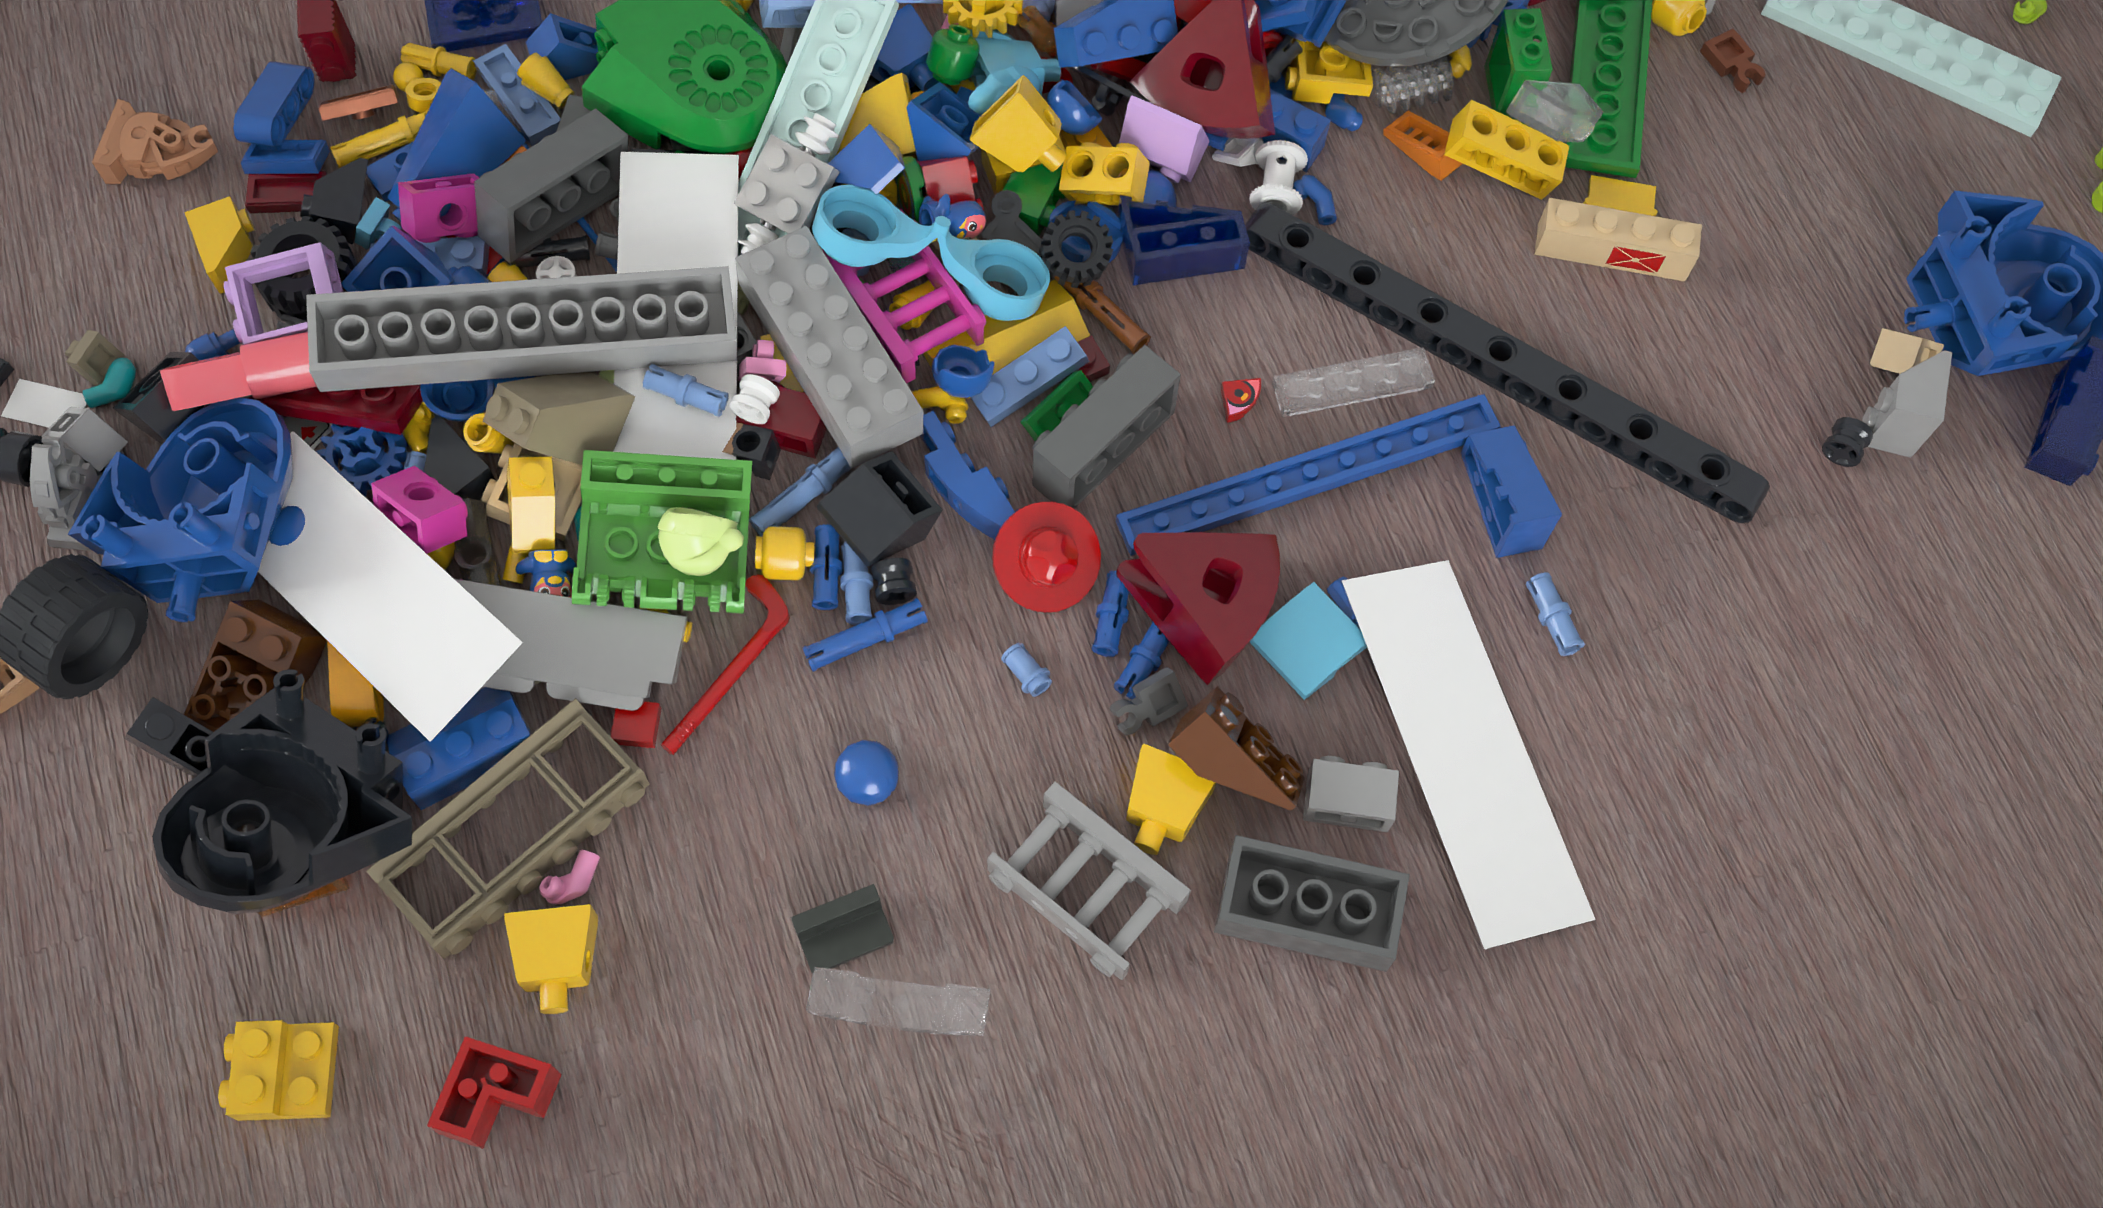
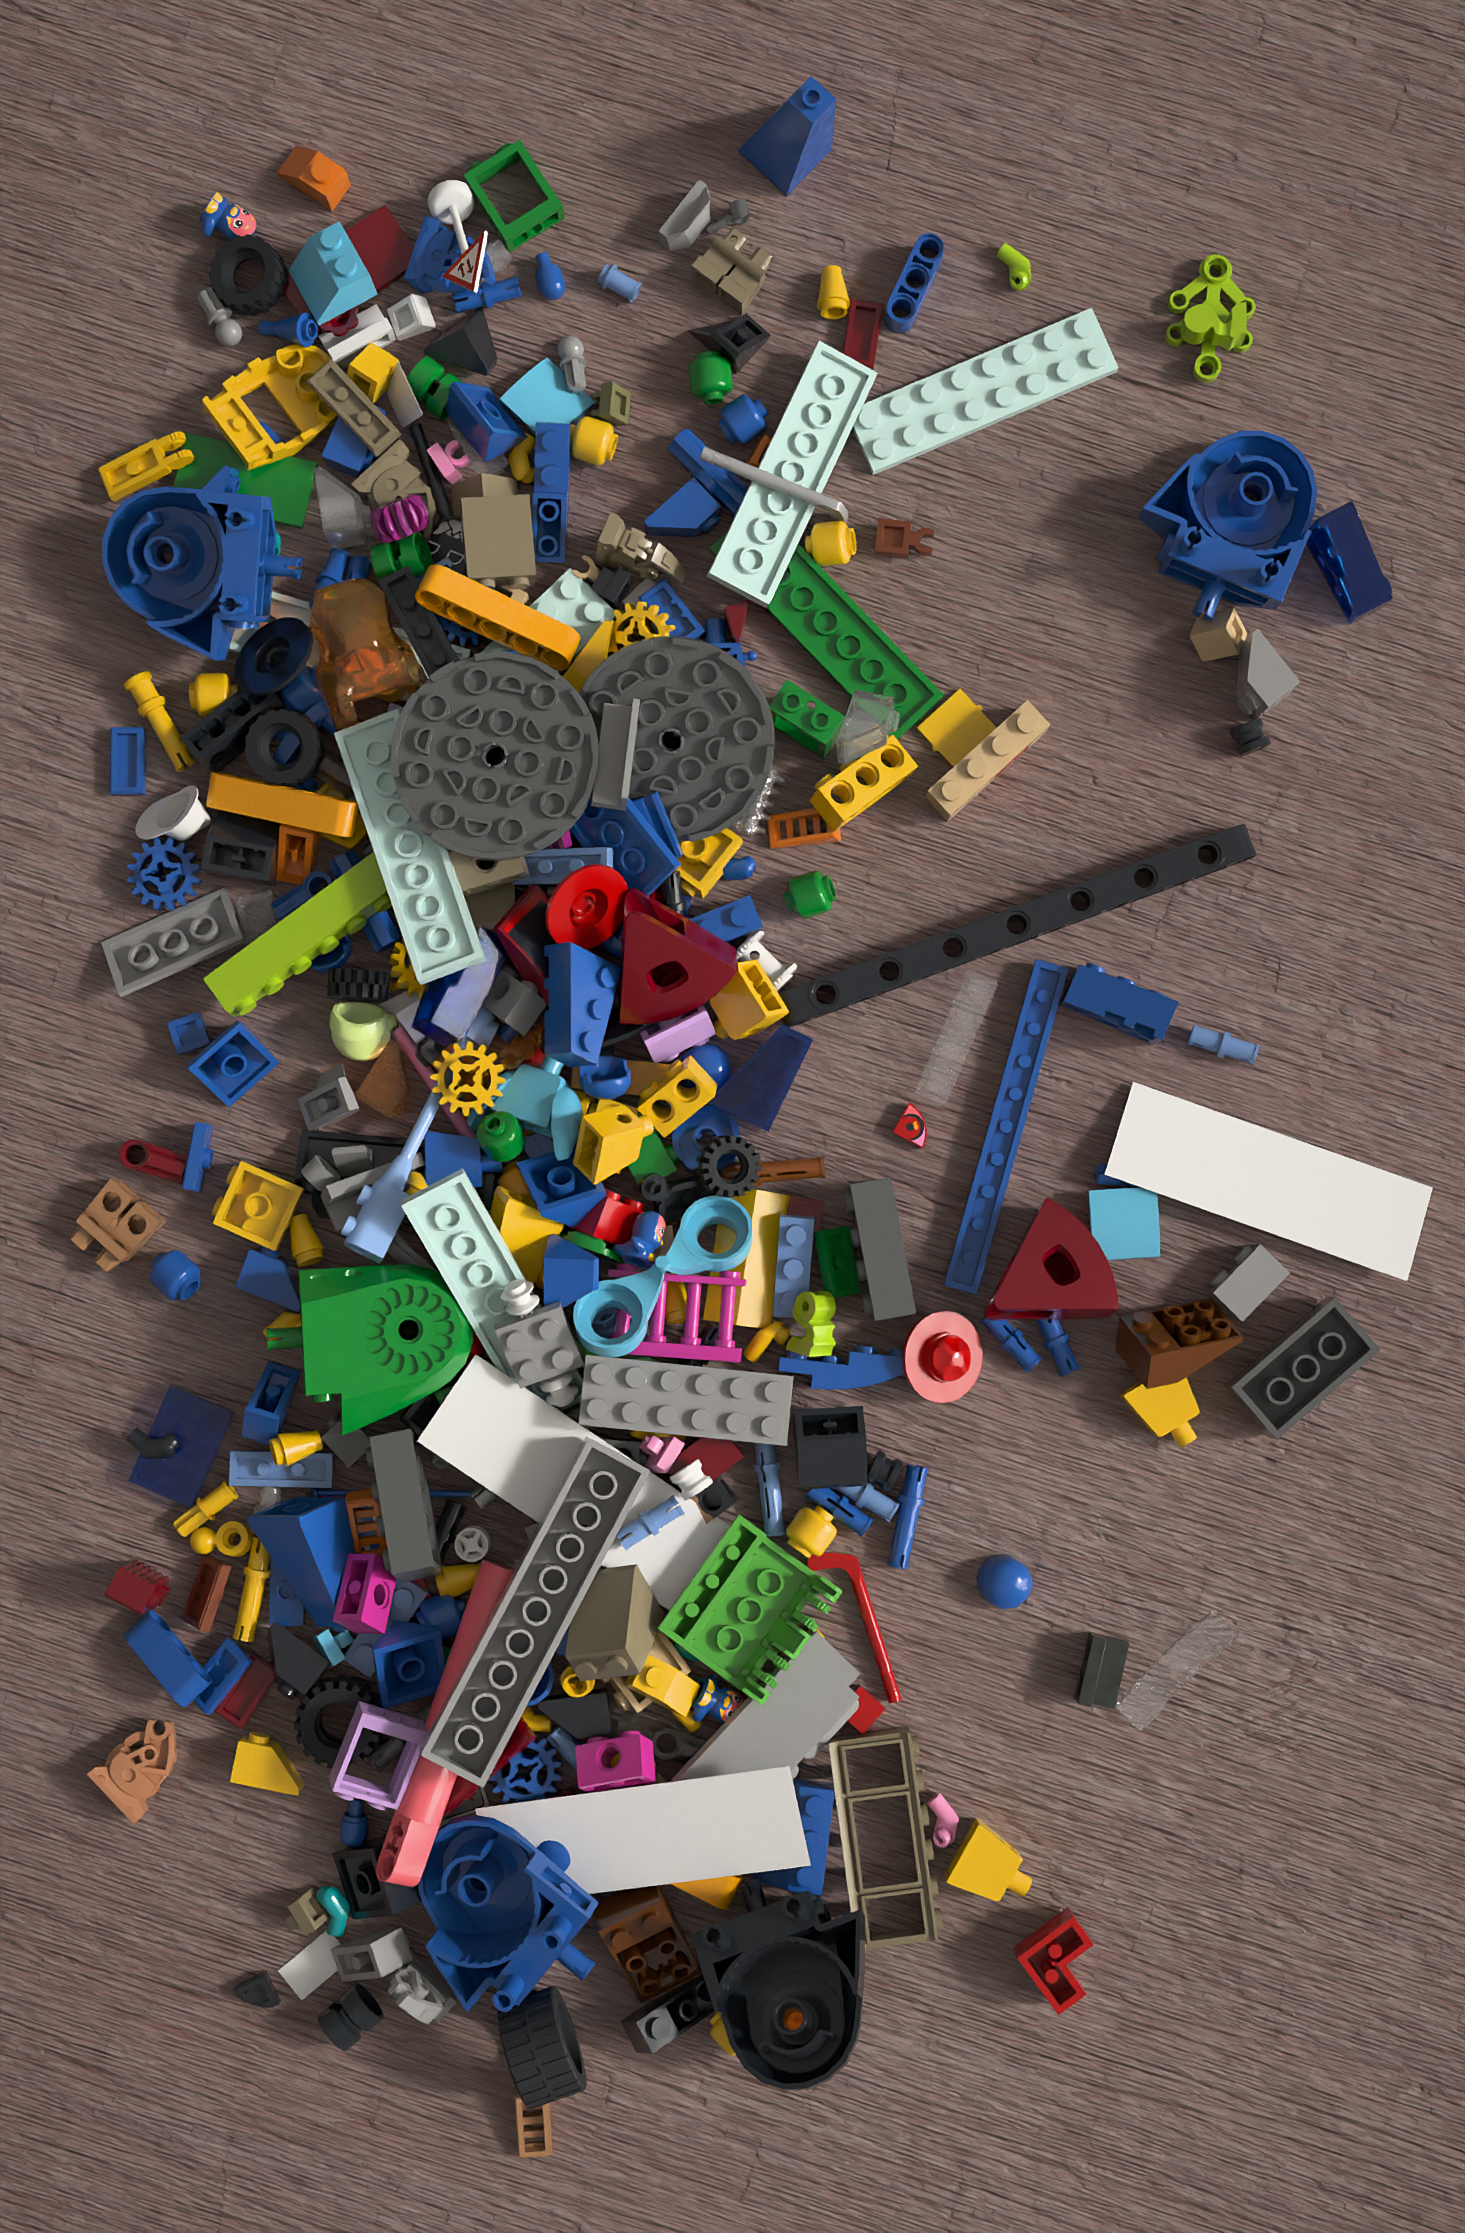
camera: 50 degrees left, 20 degrees up
(279, 1070) = (942, 2079): yellow plate -> none
(697, 540) = (771, 1588): yellowish green piece -> none
(962, 371) = (763, 1314): blue hair -> none
(994, 417) = (814, 1314): none -> lime leg
(1033, 677) = (1010, 1426): medium blue pin -> none
(1128, 866) = (1159, 1470): light grey fence -> none
(1155, 701) = (1092, 1361): dark grey plate -> none
(1235, 175) = (747, 1003): none -> yellow torso
(1321, 195) = (792, 941): blue arm -> none
(1373, 178) = (810, 894): none -> green head

